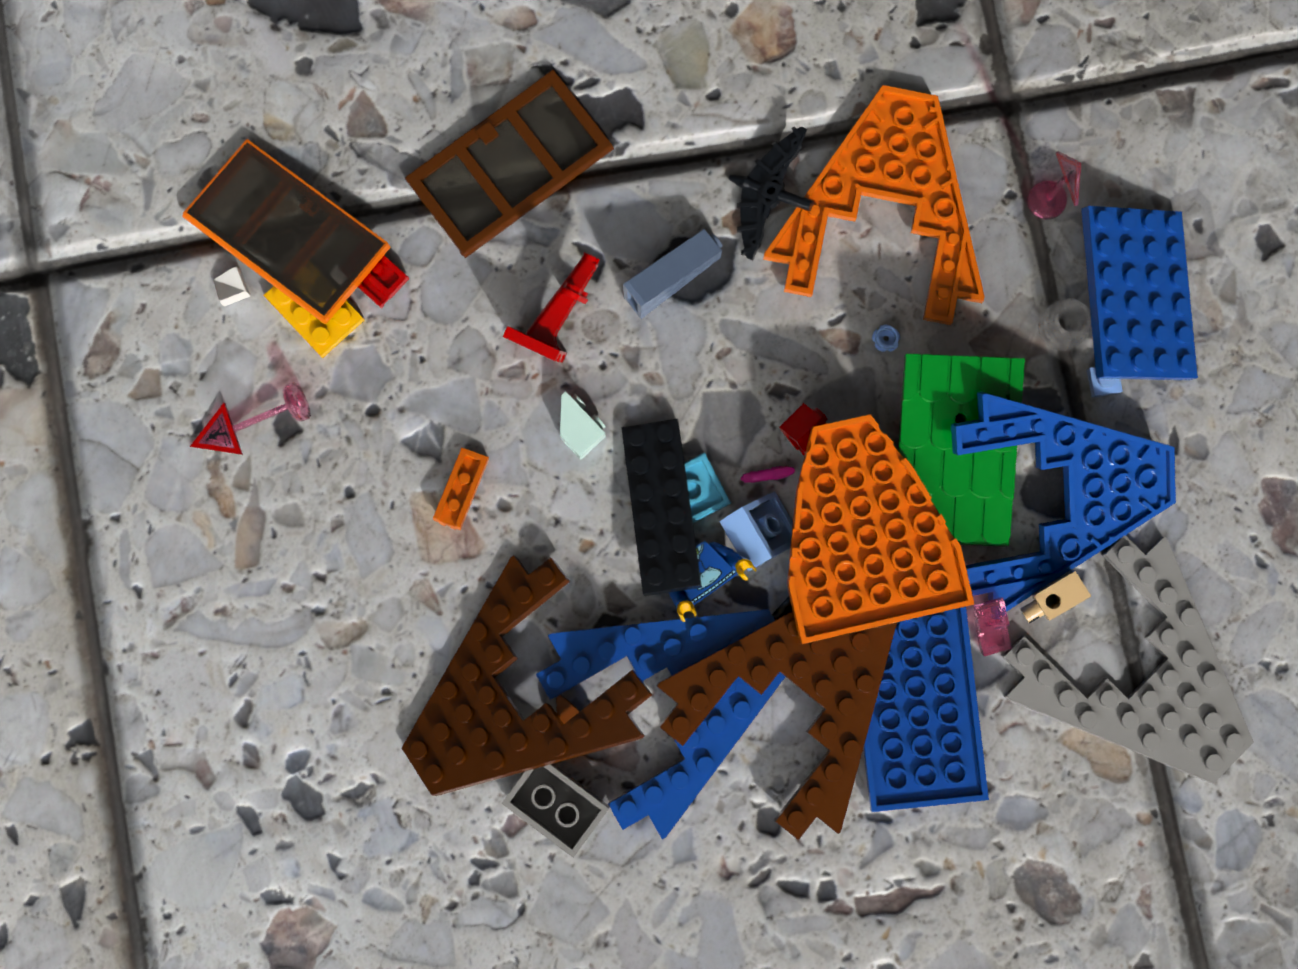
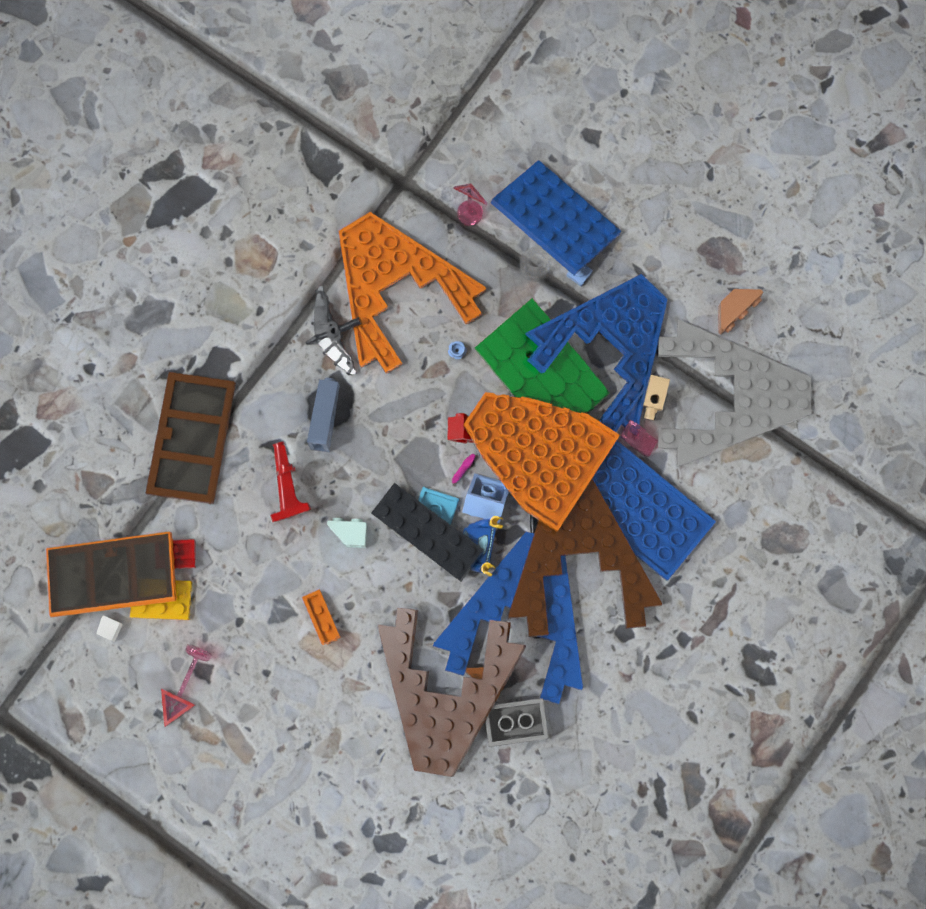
camera: 40 degrees left, 5 degrees down
(1245, 584) = (735, 307): none -> nougat slope

